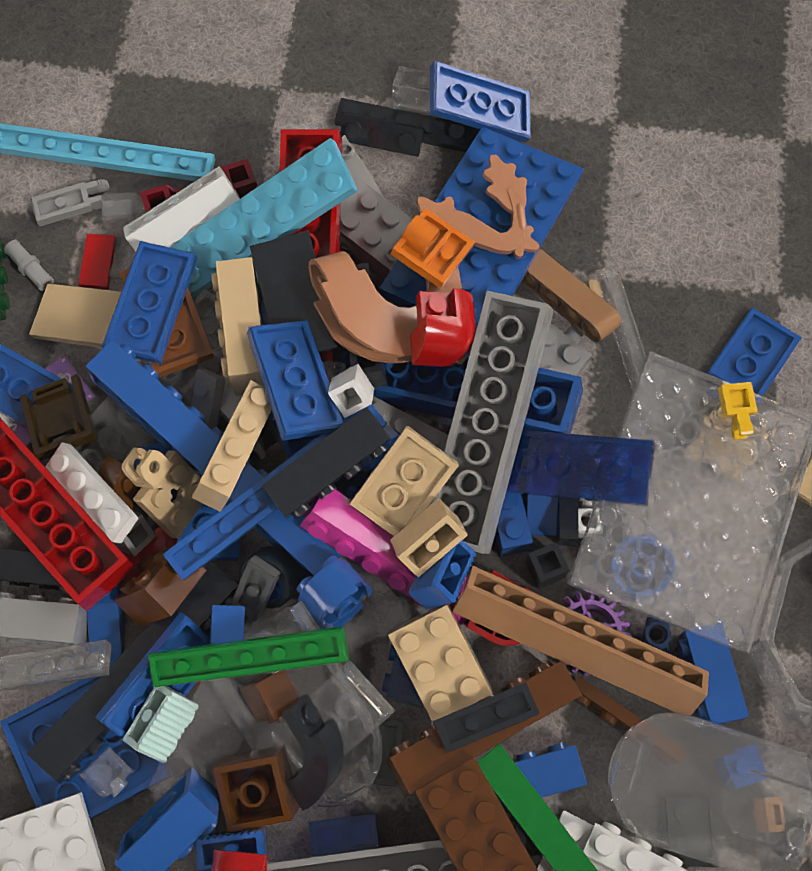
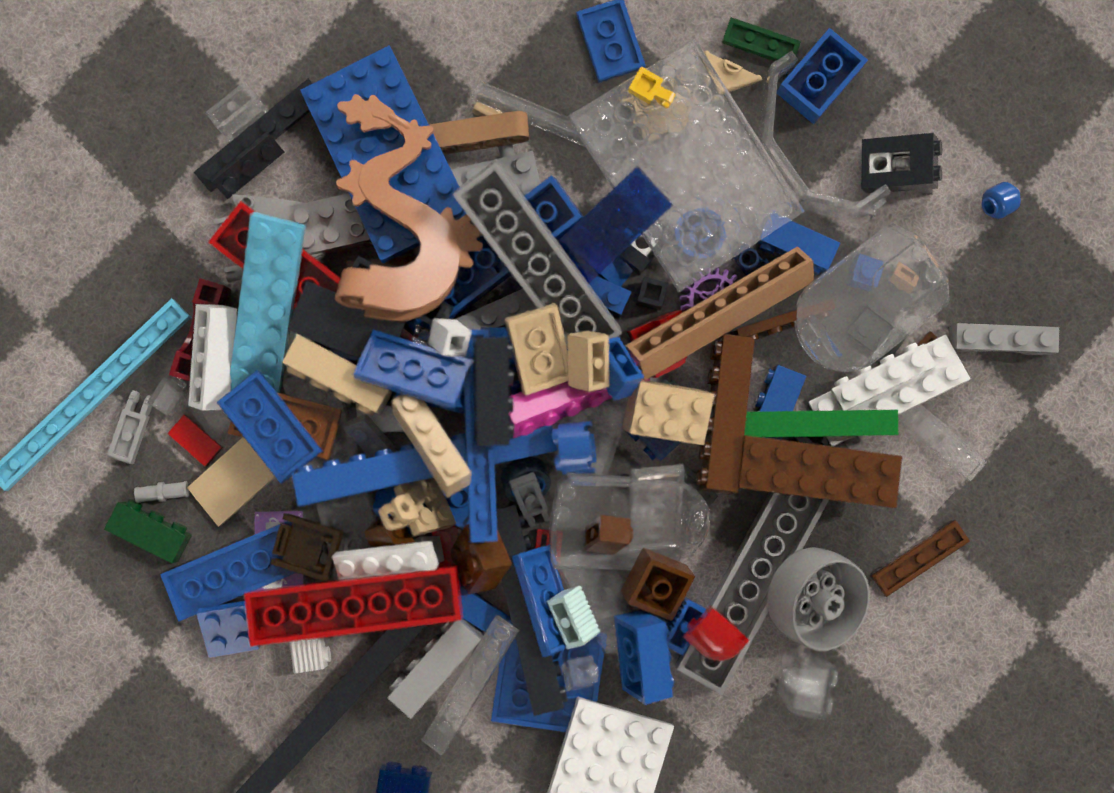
camera: 50 degrees left, 15 degrees up
(227, 623) = (544, 533): blue brick -> none
(248, 656) = (578, 532): green tile -> none
(321, 751) = (665, 526): black arch -> none
(344, 835) = (725, 549): clear blue brick -> none
(432, 247) = (386, 204): orange plate -> none
(444, 327) = (455, 242): red brick -> none
(479, 101) = (278, 76): tile -> none
(486, 717) = (727, 410): black plate -> none

